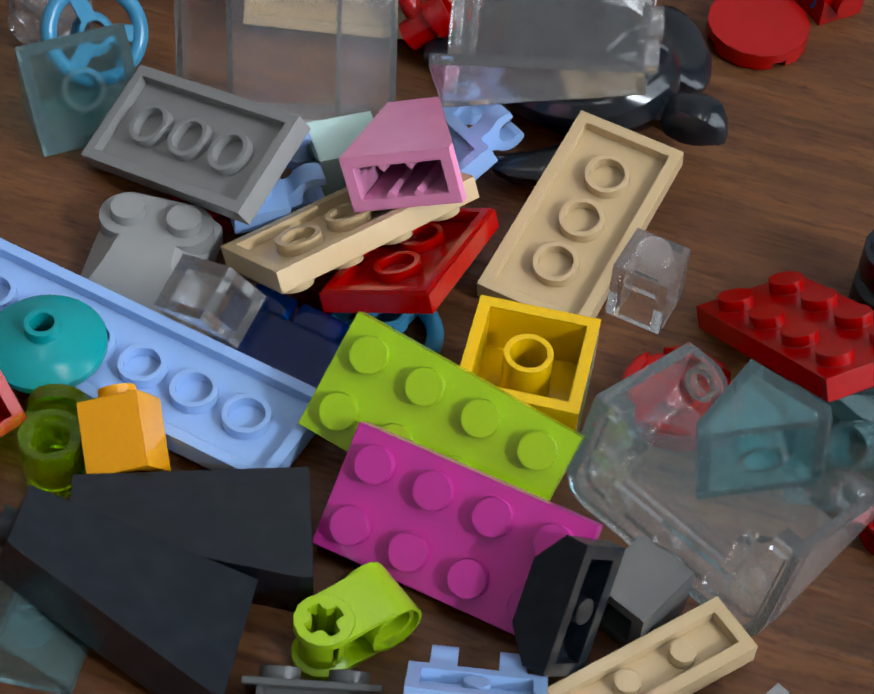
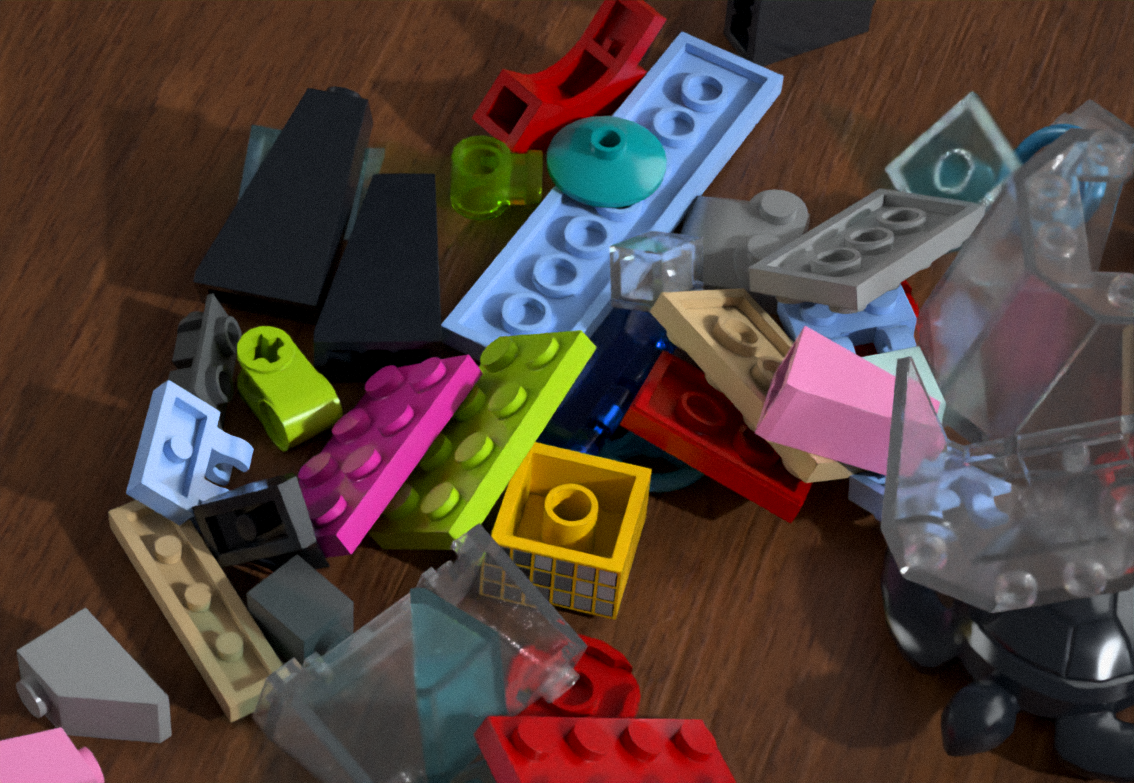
camera: 90 degrees right, 0 degrees up
(123, 431) = (485, 212): light orange brick -> none
(581, 218) = (801, 601): tan plate -> none
(647, 280) = (723, 662): clear brick -> none

